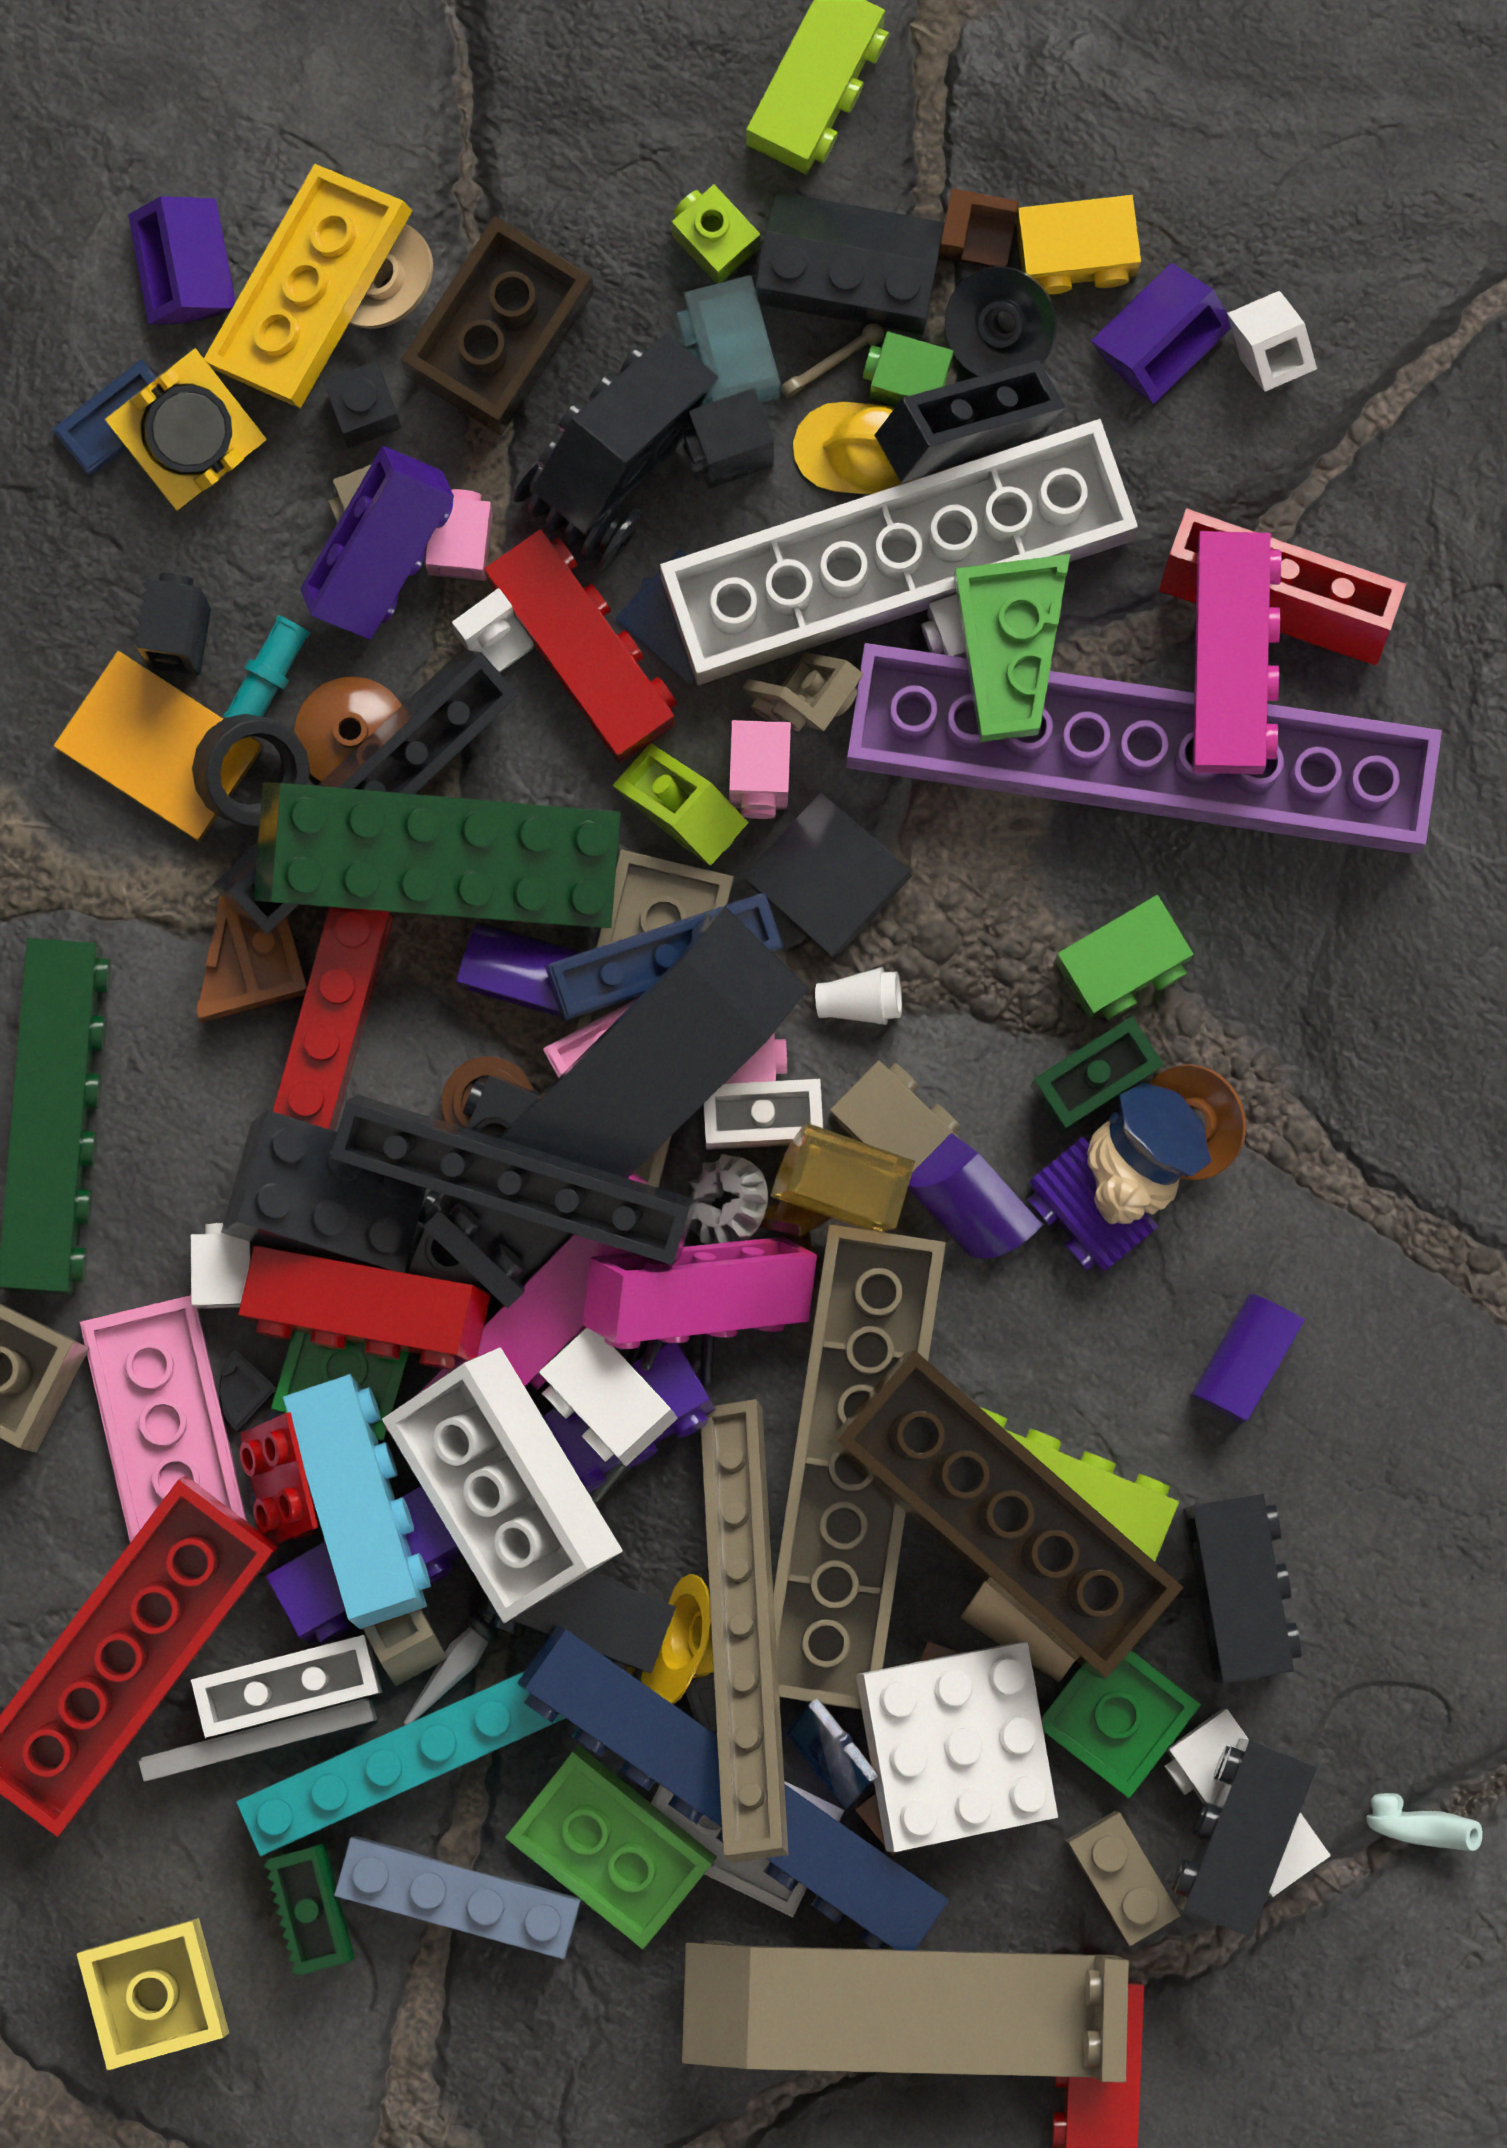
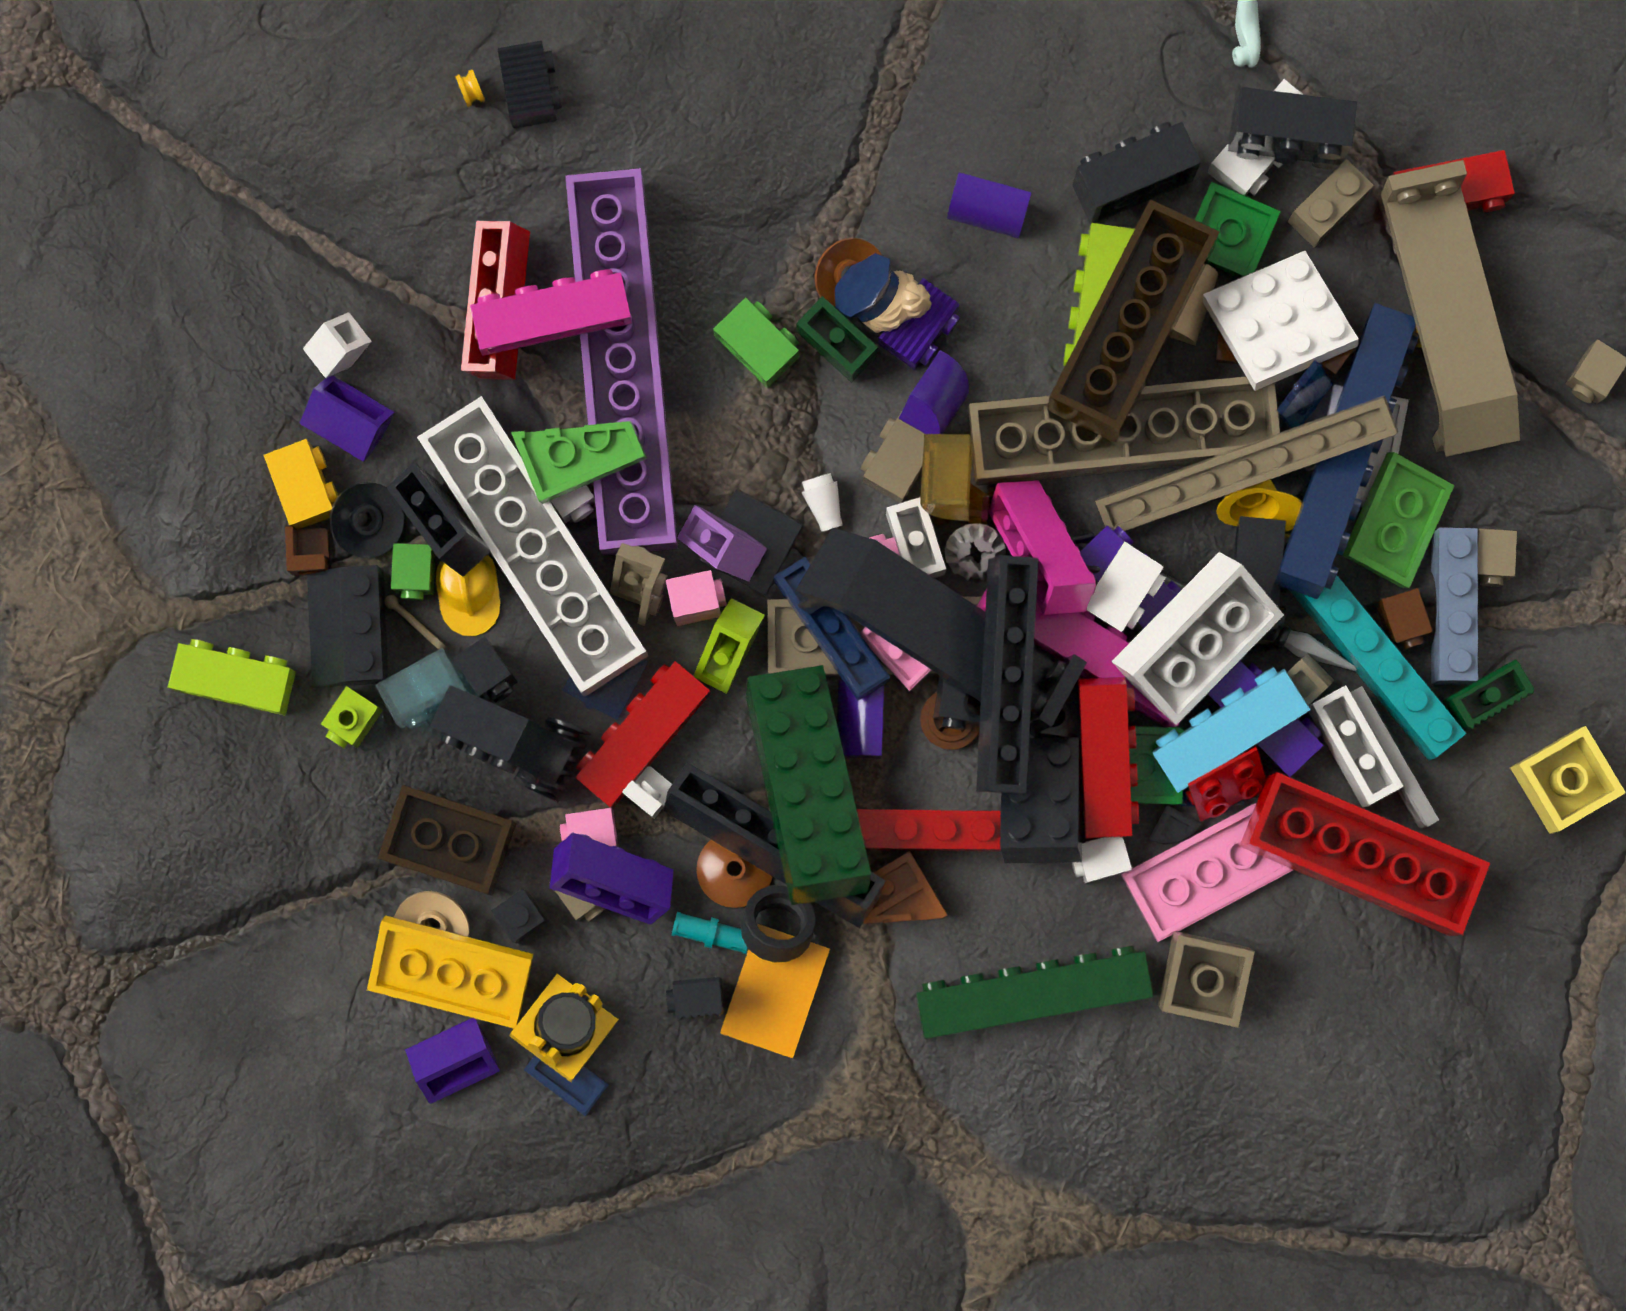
camera: 100 degrees left, 0 degrees up
(459, 1817) = (1404, 619): none -> reddish brown brick
(518, 1978) = (1496, 556): none -> dark tan brick
(829, 826) = (721, 544): none -> medium lavender slope

